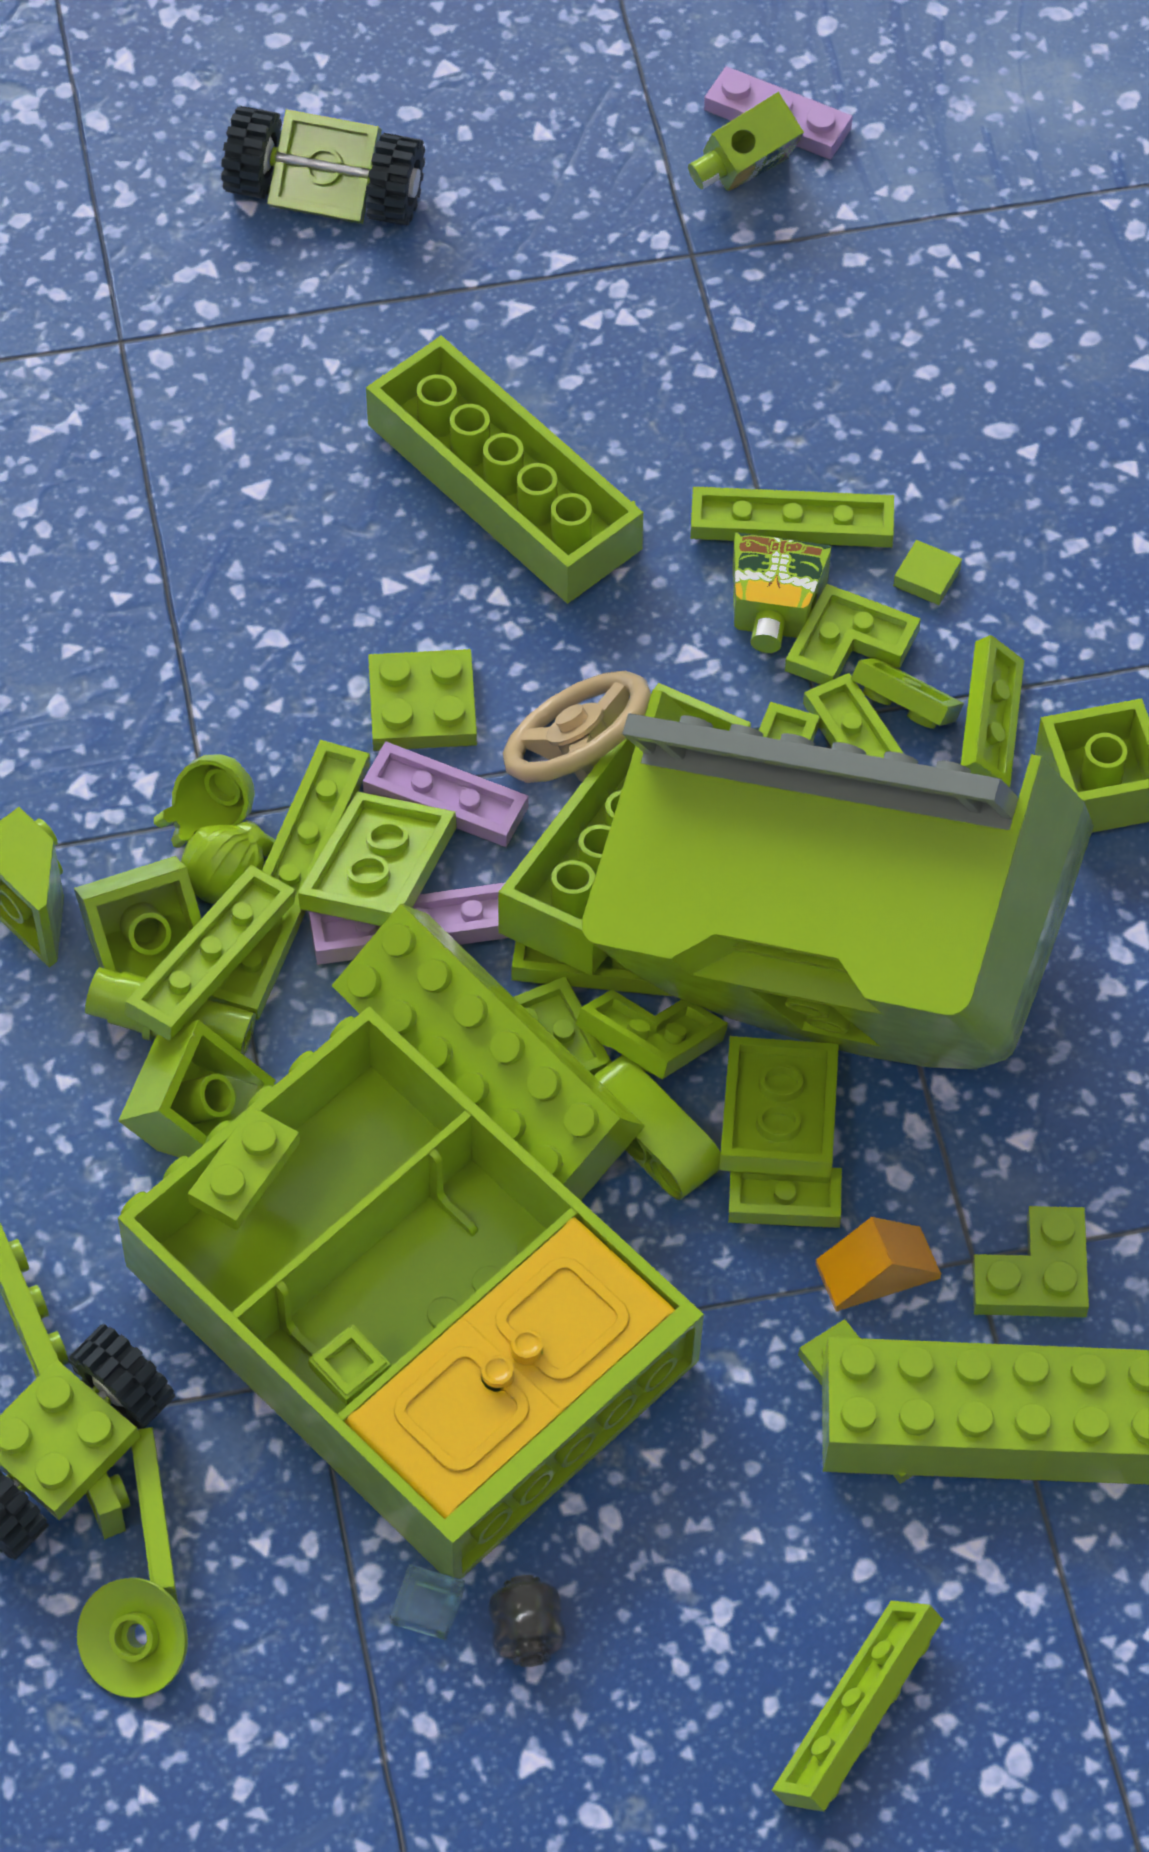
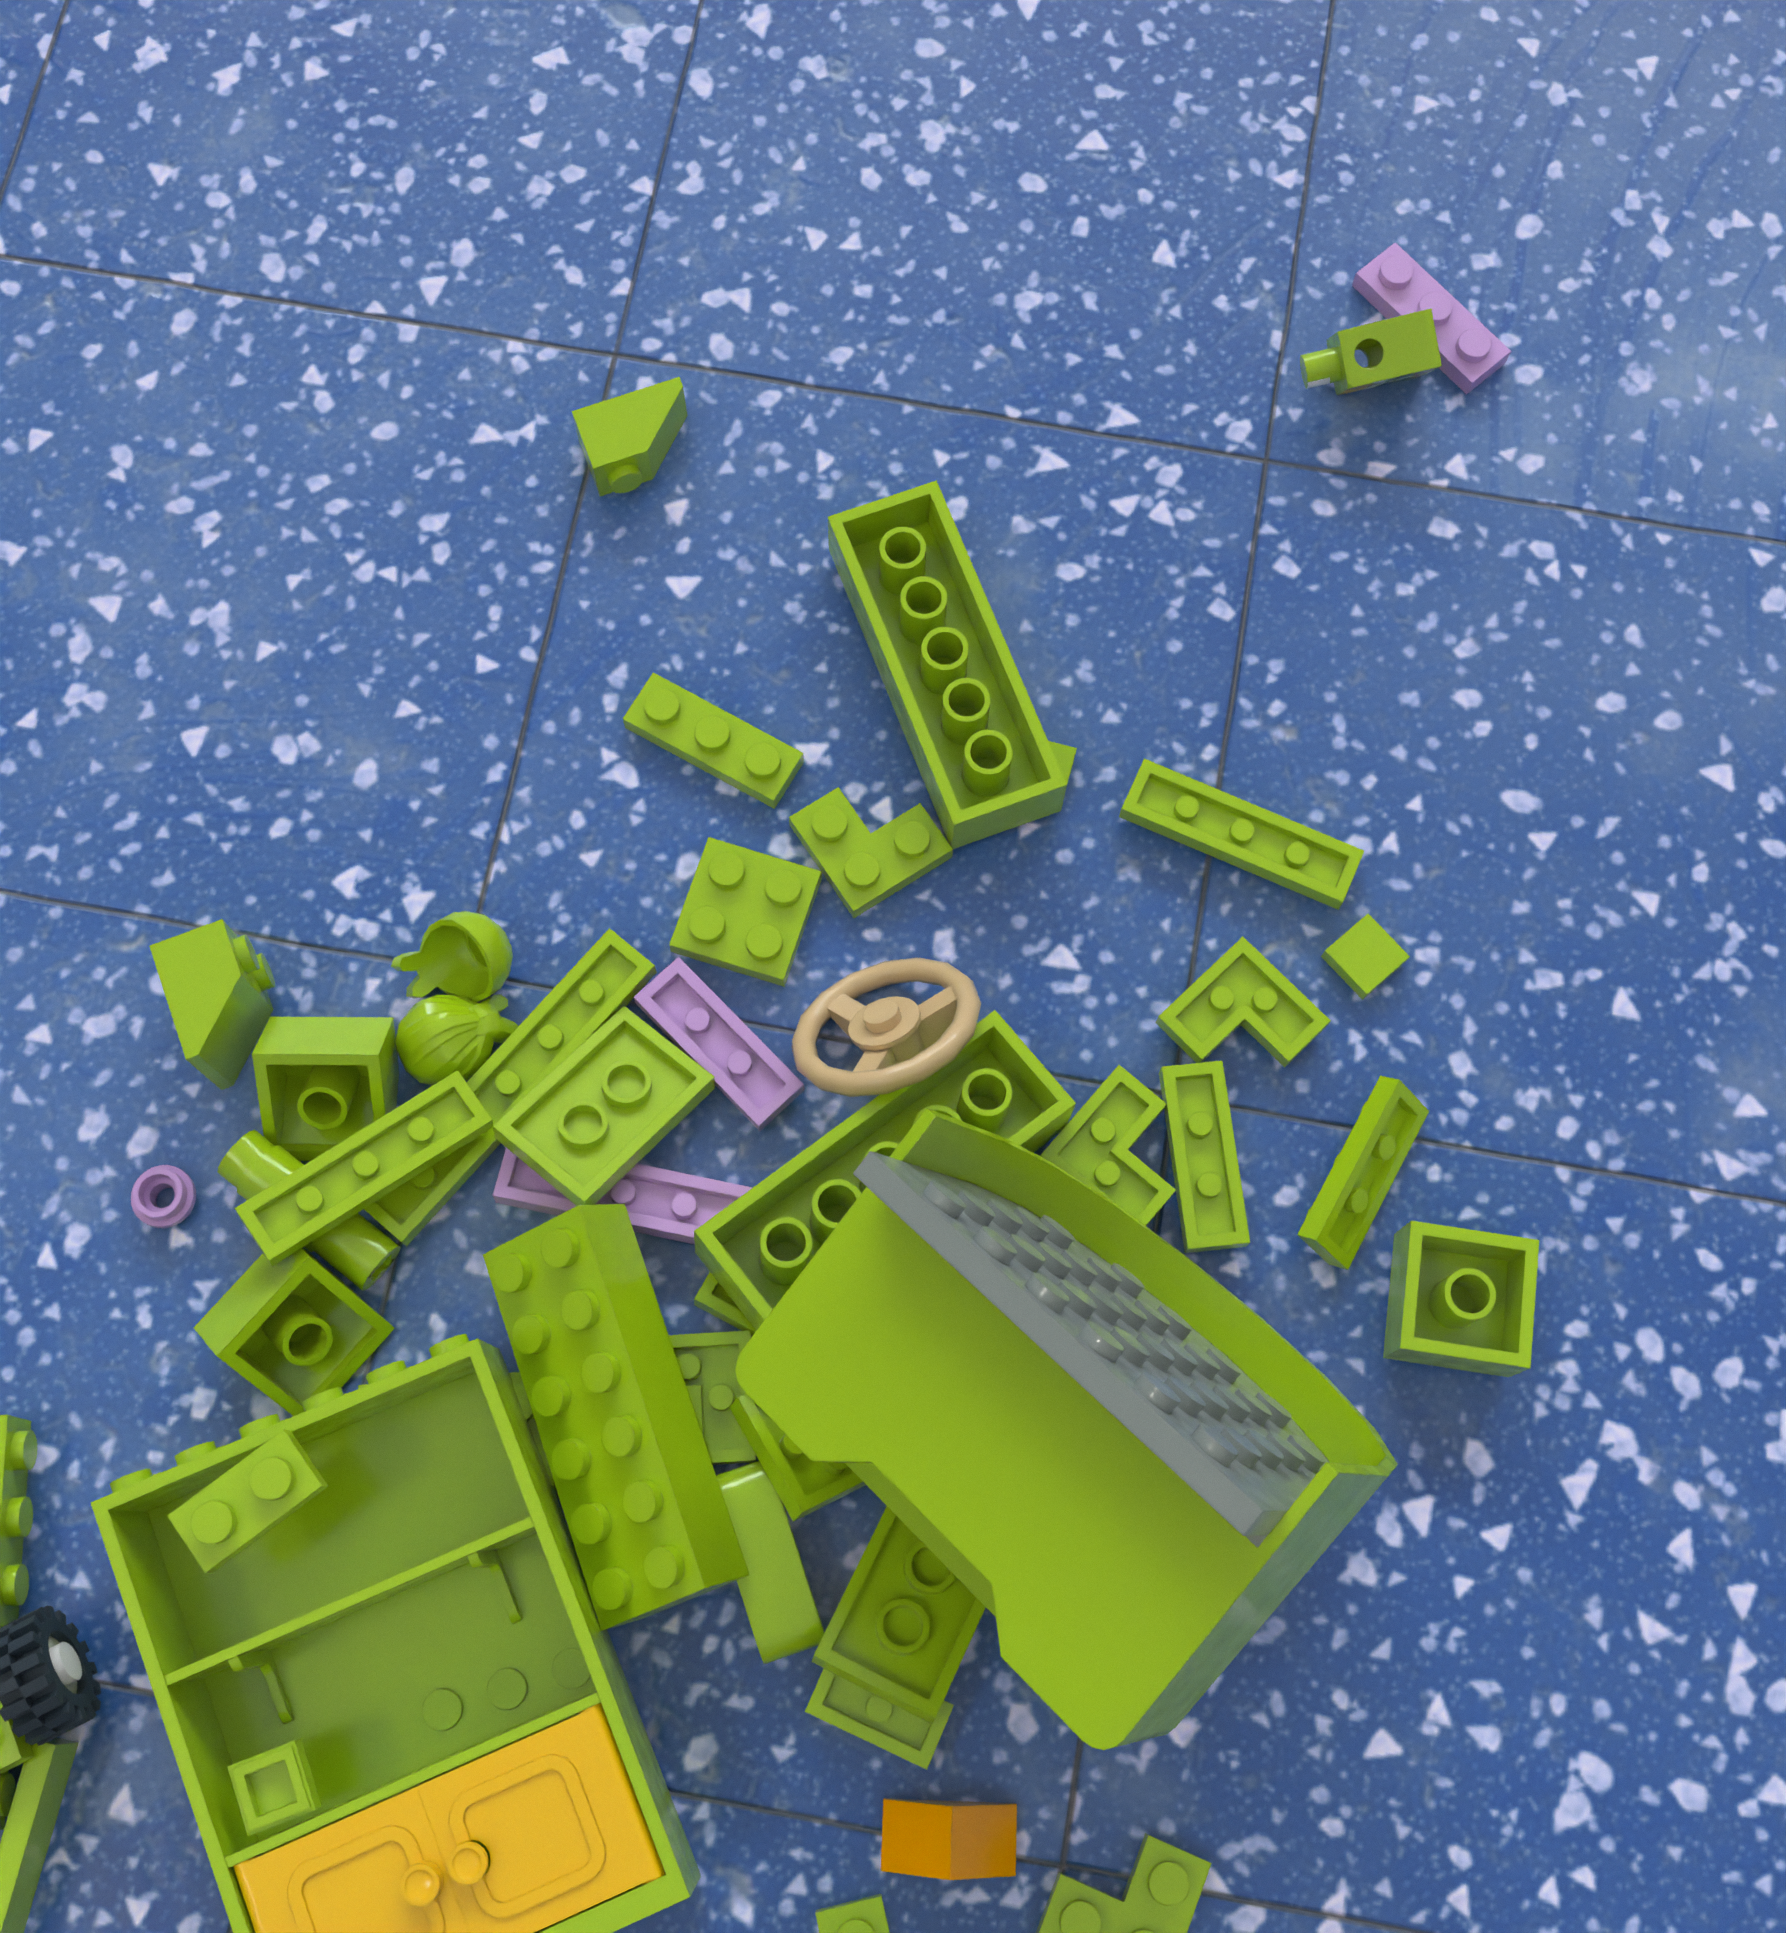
camera: 20 degrees right, 15 degrees up
(41, 1037) = (148, 1187): none -> lavender plate
(164, 391) = (630, 434): none -> lime slope
(323, 165) = (903, 221): plate -> none
(338, 588) = (713, 740): none -> lime plate
(504, 636) = (865, 864): none -> lime plate
(776, 586) = (1185, 919): torso -> none
(888, 684) = (1278, 1106): lime plate -> none

